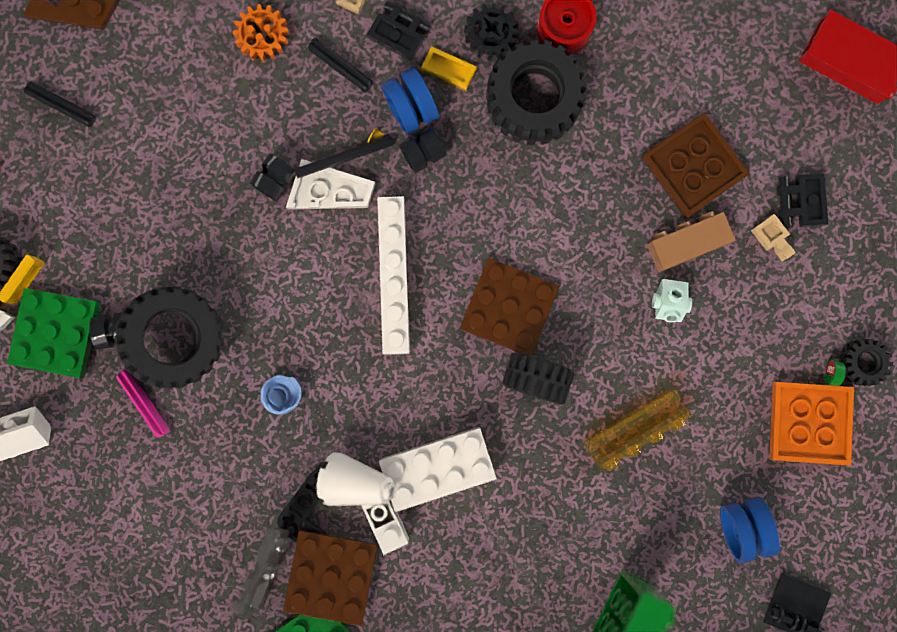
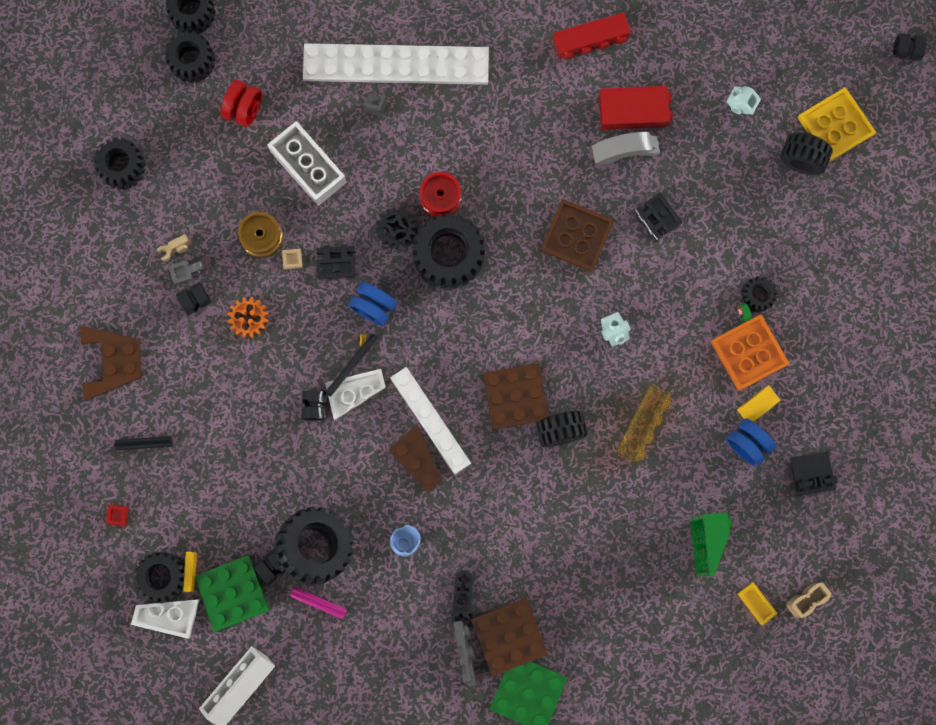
camera: 30 degrees left, 5 degrees down
(340, 65) = (311, 307): black axle -> none
(352, 309) = (416, 458): none -> reddish brown wing
(352, 483) = (487, 566): white cone -> none
(386, 526) = (522, 580): white slope -> none
(422, 150) = (399, 329): black wheel -> none
(438, 468) = (534, 525): white brick -> none
(448, 68) = (382, 267): yellow tile -> none
(690, 240) = (603, 284): medium nougat brick -> none
(772, 234) = (652, 249): tan plate -> none
(785, 489) = (759, 404): none -> yellow slope
(816, 93) = (624, 146): none -> light grey arch

